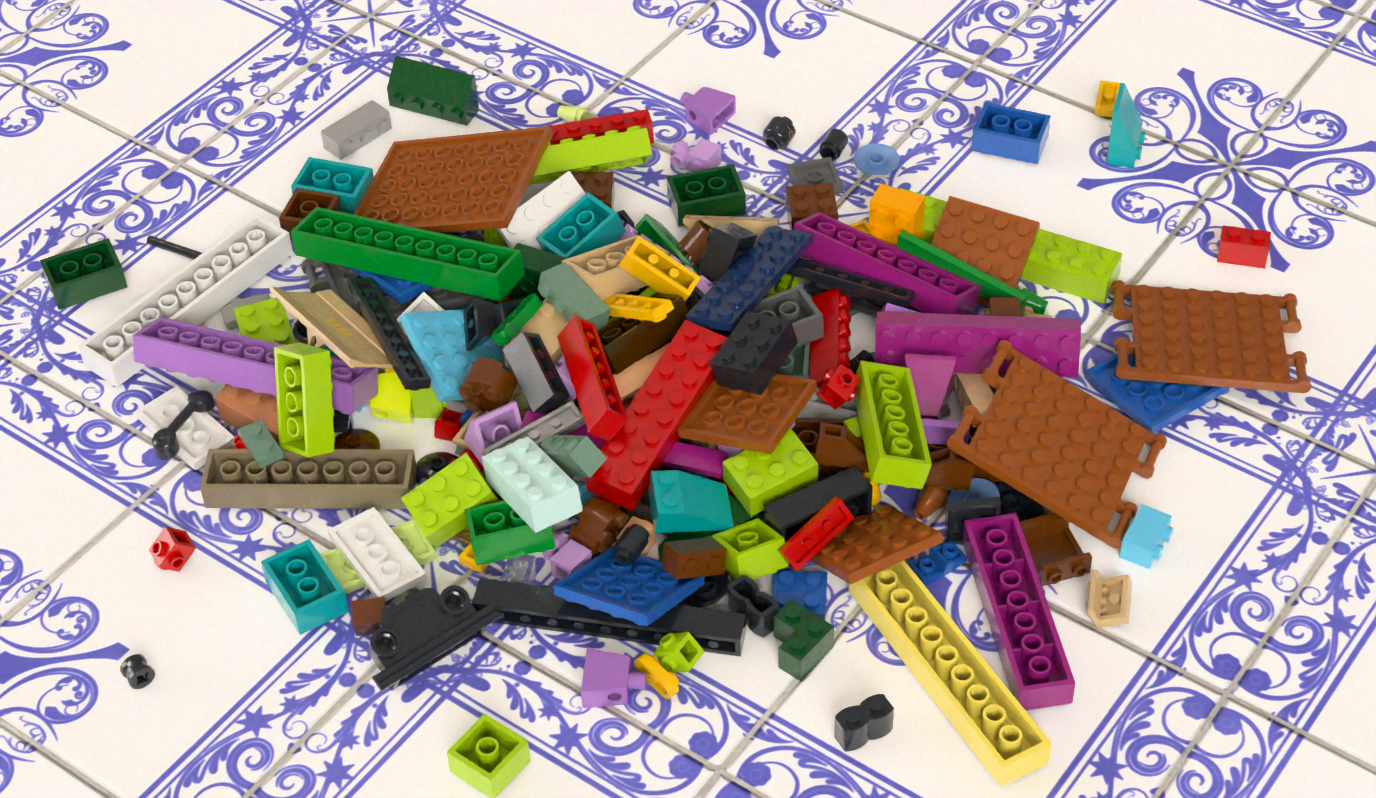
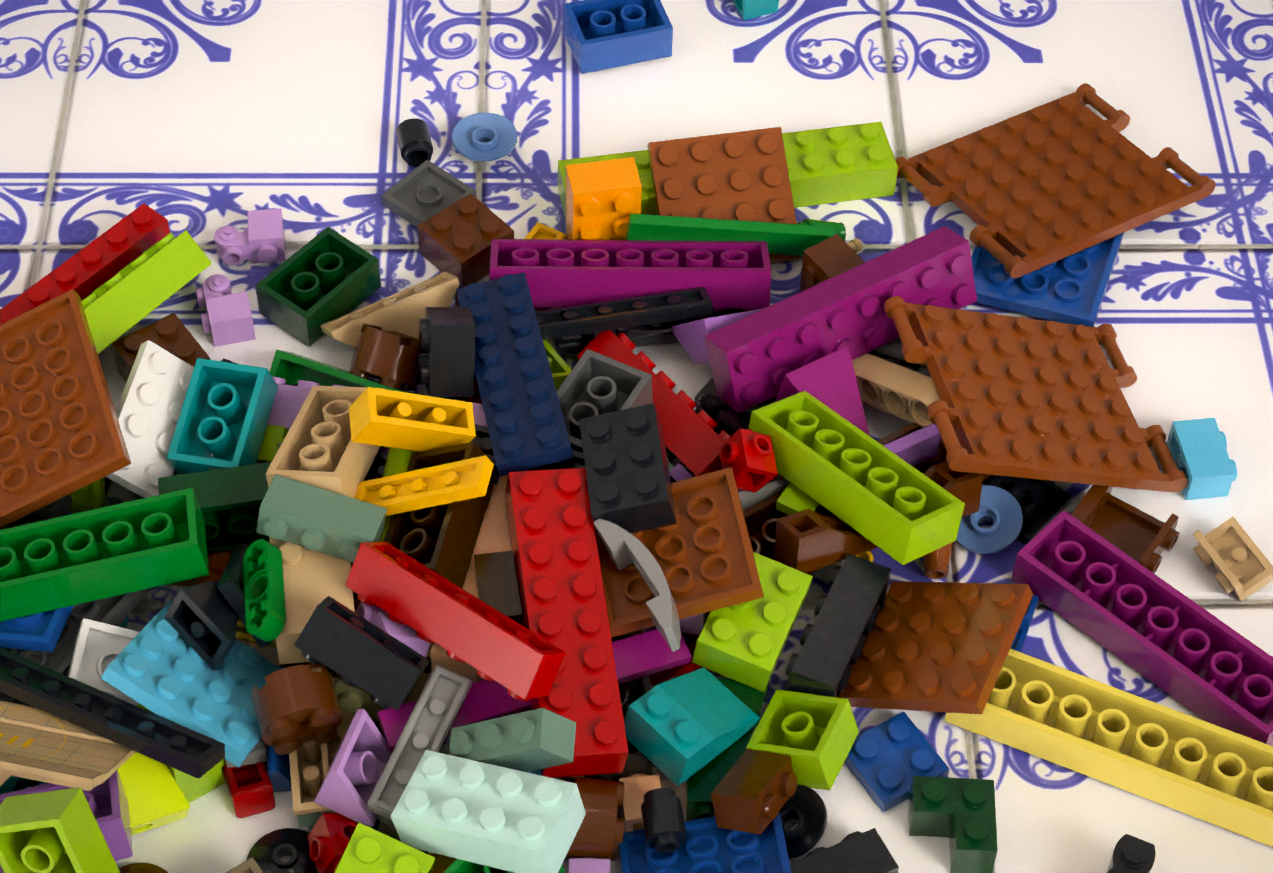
camera: 40 degrees left, 5 degrees up
(573, 113) = (39, 257): yellowish green cone -> none
(635, 379) = (498, 583): none -> dark brown tile
(647, 187) = (227, 314): none -> lavender brick
(708, 108) = (210, 166): medium lavender torso -> none
(708, 429) = (627, 549): none -> light grey slope
(758, 606) = (860, 807): black brick -> none
(779, 132) = (333, 157): black head -> none
(816, 533) = (875, 670): red plate -> none
(967, 510) = (1009, 543): black tile -> none
(1243, 246) = (984, 50): slope -> none

